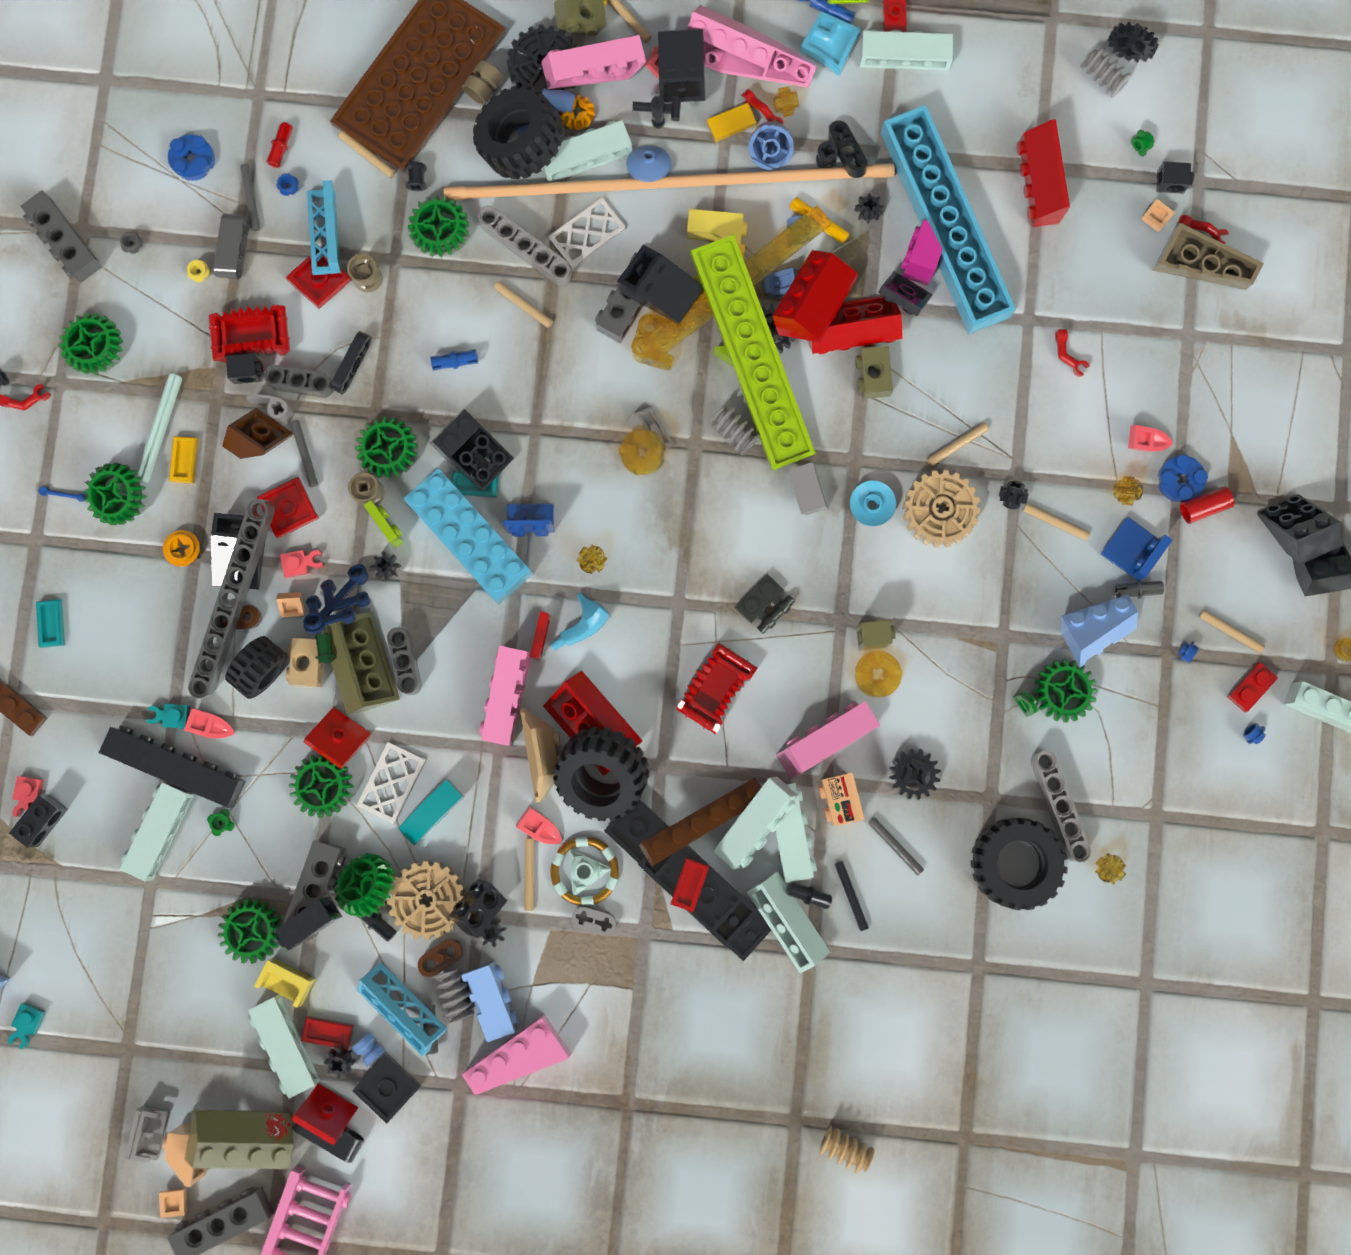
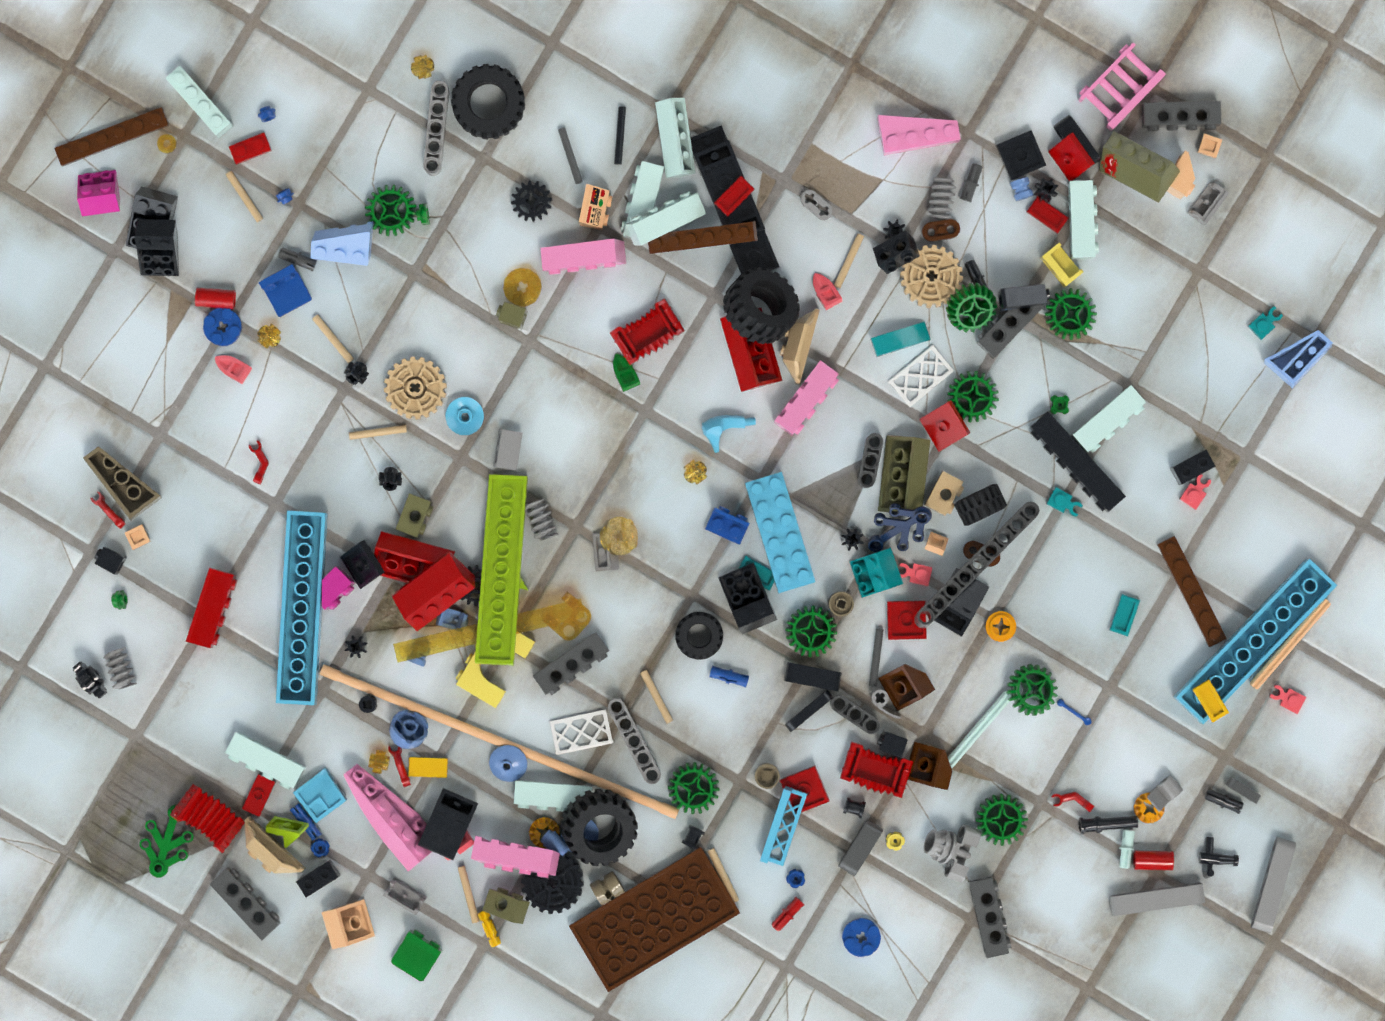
camera: 155 degrees left, 5 degrees up
(125, 241) = (937, 883): dark grey plate -> none
(131, 287) = (952, 850): none -> light grey beam
(183, 460) = (970, 695): yellow tile -> none
(192, 361) = (930, 766): none -> reddish brown slope
(207, 724) = (1038, 482): coral plate -> none
(250, 197) = (829, 882): dark grey bar -> none
(256, 284) = (854, 807): none -> black bush
(324, 648) = (924, 495): dark green pin -> none
(342, 542) = (876, 572): none -> teal slope
(363, 400) = (812, 676): none -> black beam
(380, 516) = (836, 563): lime plate -> none
(395, 1015) = (983, 188): medium azure fence -> none
(491, 1000) = (916, 182): light blue wedge -> none
(501, 368) = (711, 623): none -> black tyre
(540, 636) = (760, 432): red tile -> none
(584, 871) = (807, 244): light aqua piece -> none
(659, 108) = (482, 796): black piece -> none
(659, 285) = (547, 651): black slope -> none
(720, 631) = (625, 373): none -> green plate
(759, 599) = (583, 384): pearl dark grey plate -> none
(809, 895) = (650, 149): black axle -> none
(834, 230) = (404, 667): yellow axle -> none
(847, 157) = (356, 695): black beam -> none
(920, 399) = (390, 478): none -> black gear

